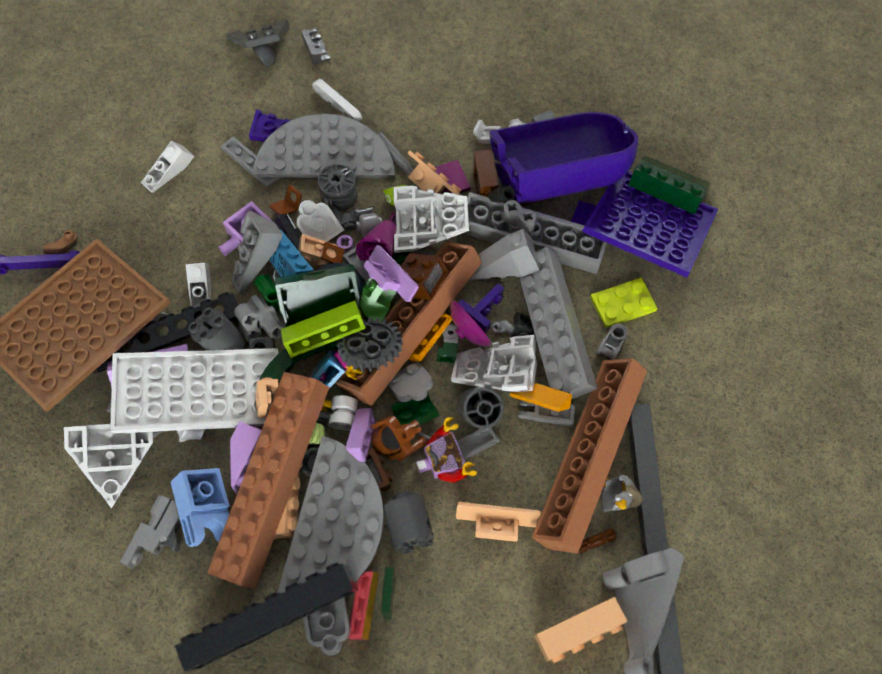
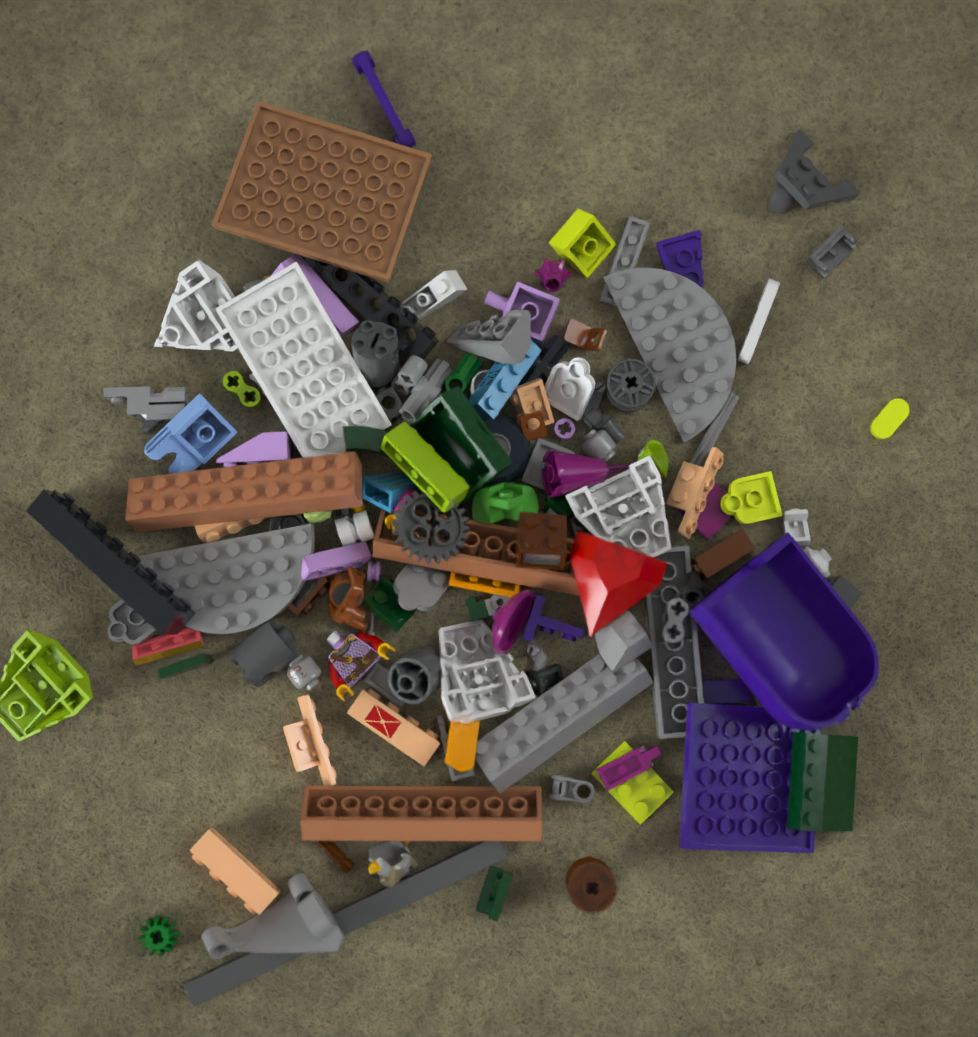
camera: 70 degrees right, 20 degrees up
(61, 245) = (418, 113): medium nougat arm -> none
(168, 165) = (570, 170): white slope -> none
(188, 452) = (242, 390): none -> lime axle
(220, 178) = (582, 242): none -> neon yellow slope
(231, 203) = (553, 274): none -> magenta rock
(265, 390) = (318, 443): light nougat bracket -> none
(382, 412) = (374, 571): none -> lavender bush
(390, 274) = (518, 508): lavender bracket -> none
(438, 500) = (303, 672): none -> light grey head
(441, 59) = (889, 418): none -> neon yellow tile
(455, 150) = (752, 499): none -> neon yellow plate
(468, 239) = (611, 578): none -> red wedge
(512, 449) = (393, 727): none -> light nougat brick
(611, 295) = (627, 766): none -> magenta hinge
(674, 427) = (494, 892): none -> dark green bracket
(693, 350) = (591, 885): none -> reddish brown piece

